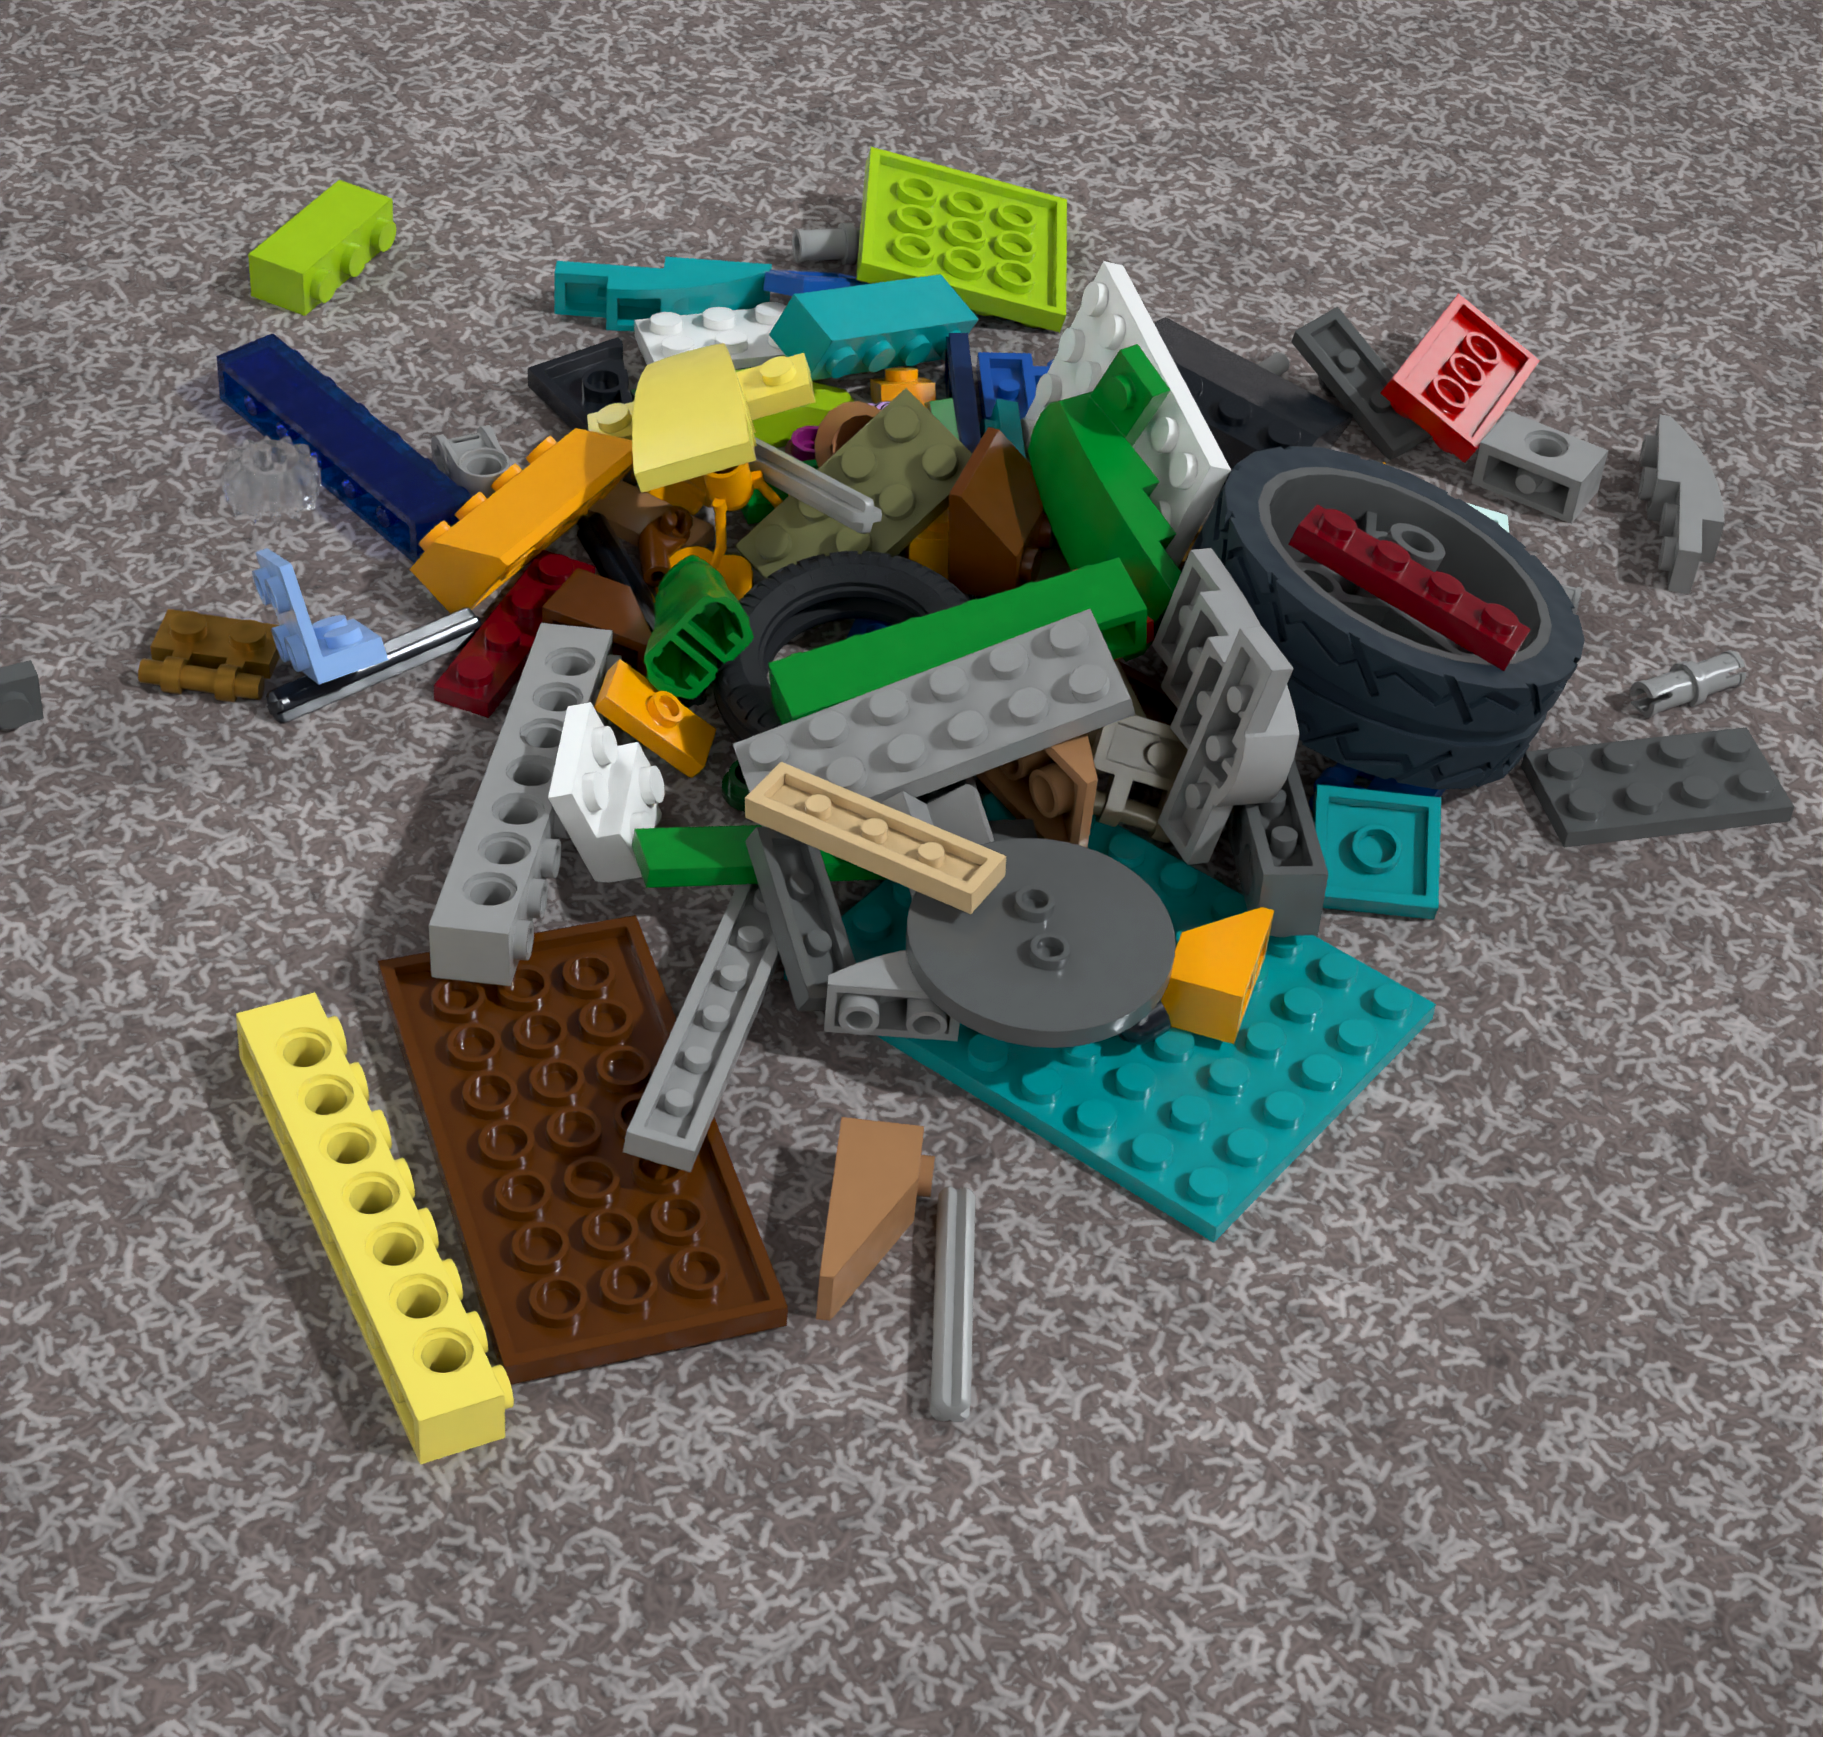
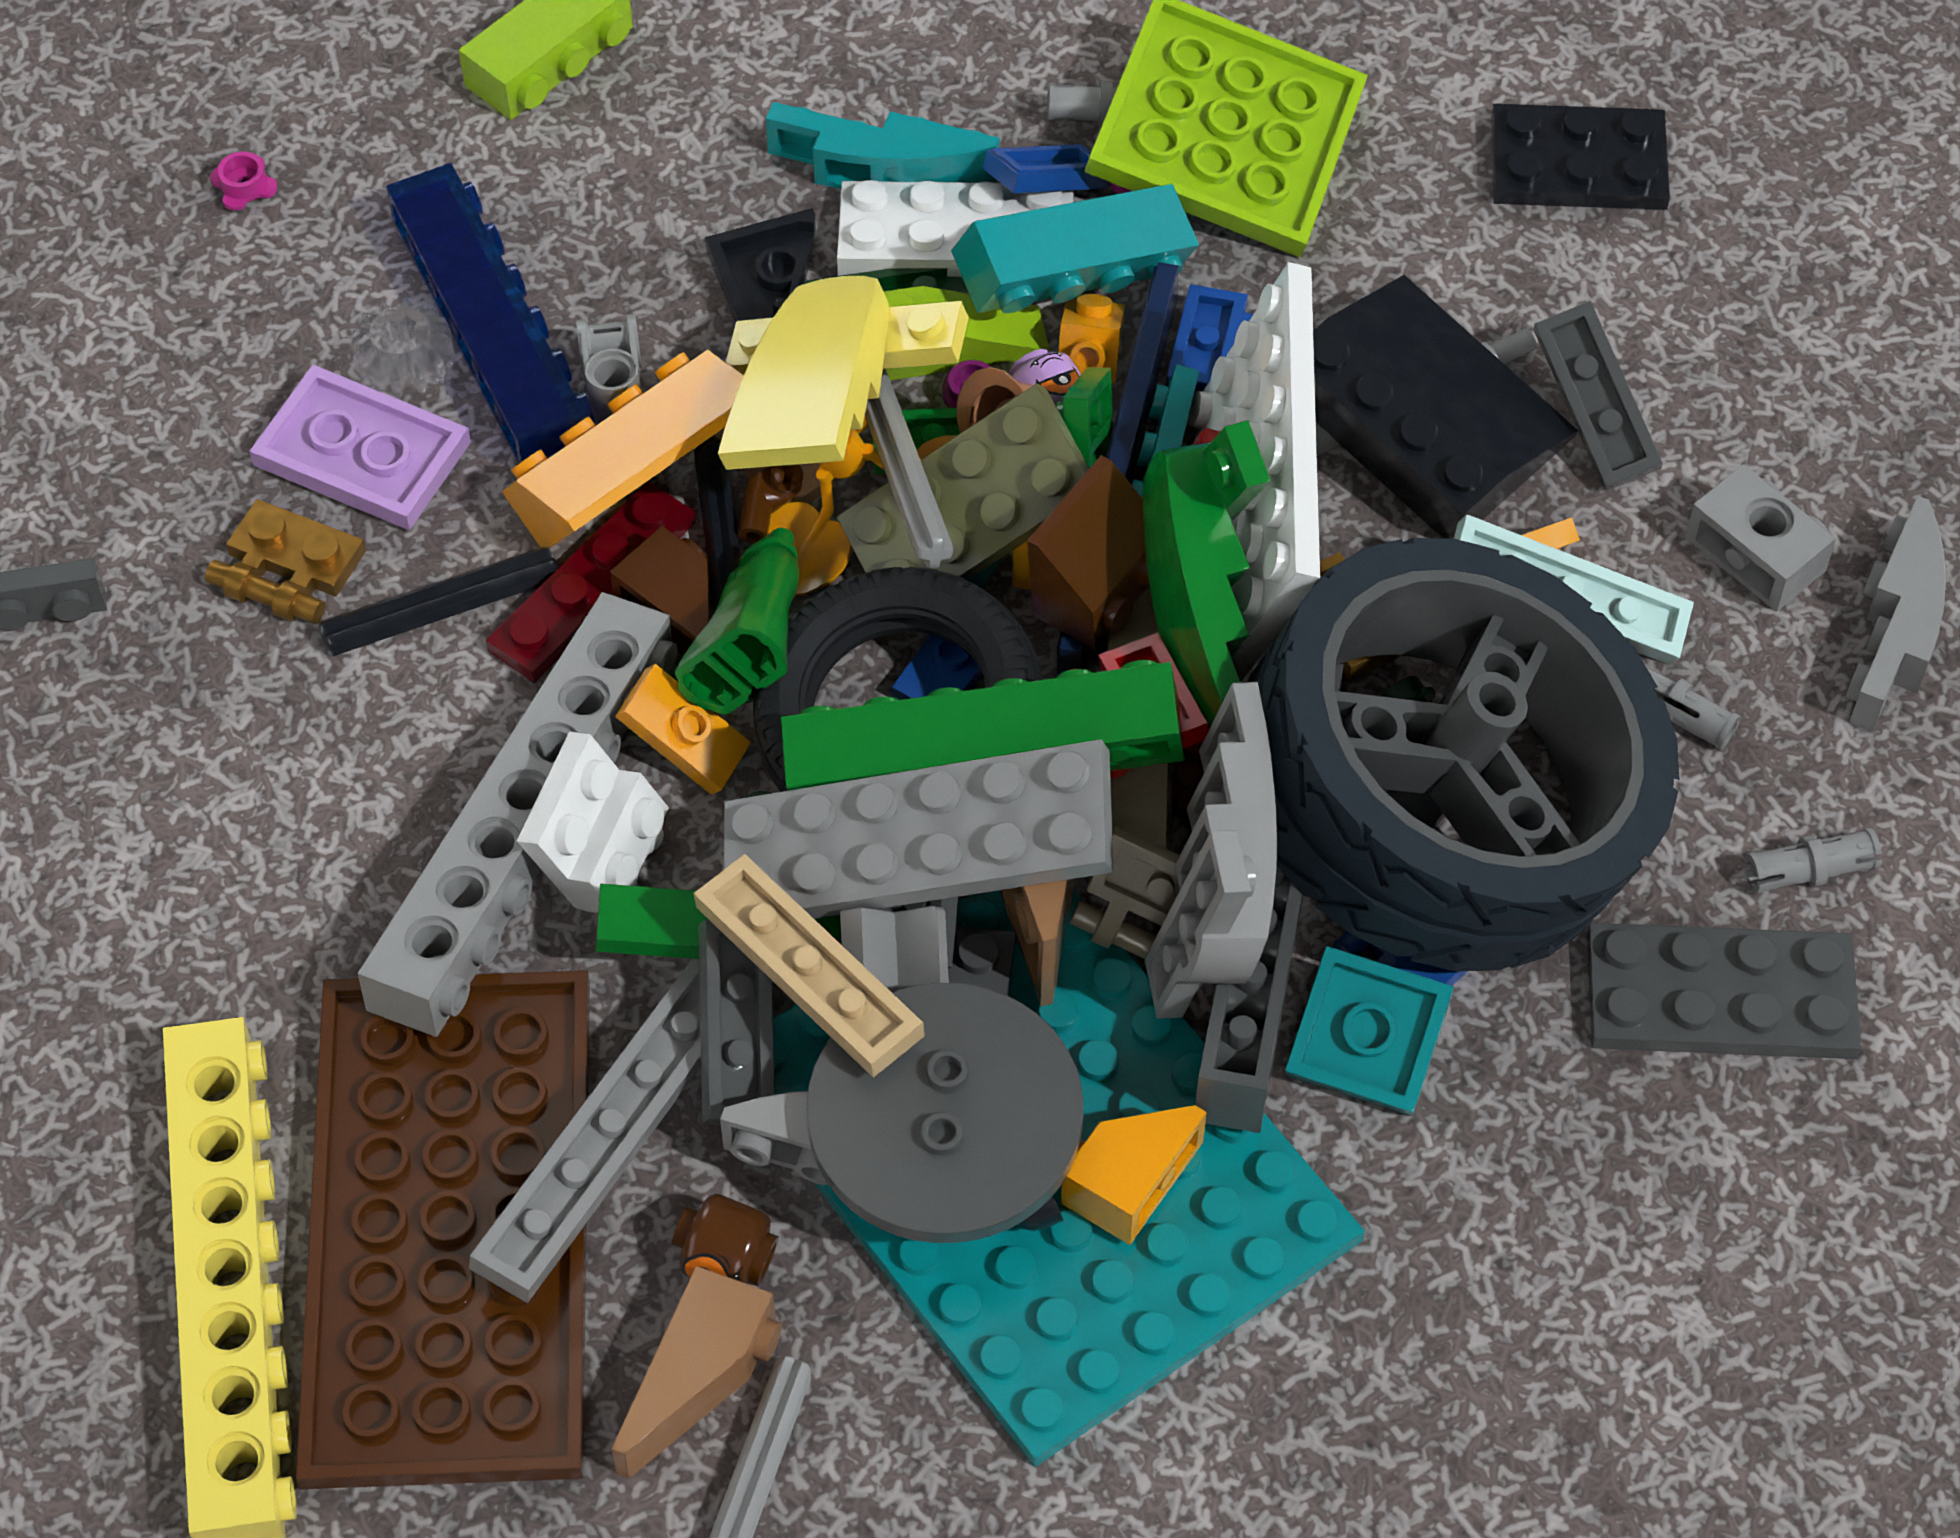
camera: 20 degrees right, 15 degrees up
(65, 379) = (241, 167): none -> dark pink plate
(217, 546) = (360, 447): none -> lavender plate
(320, 649) = (380, 588): light blue bracket -> none
(852, 1091) = (726, 1240): none -> reddish brown head
(1265, 239) = (1579, 156): none -> black plate
(1422, 594) = (1465, 759): dark red plate -> none
(1460, 378) = (1711, 405): plate -> none

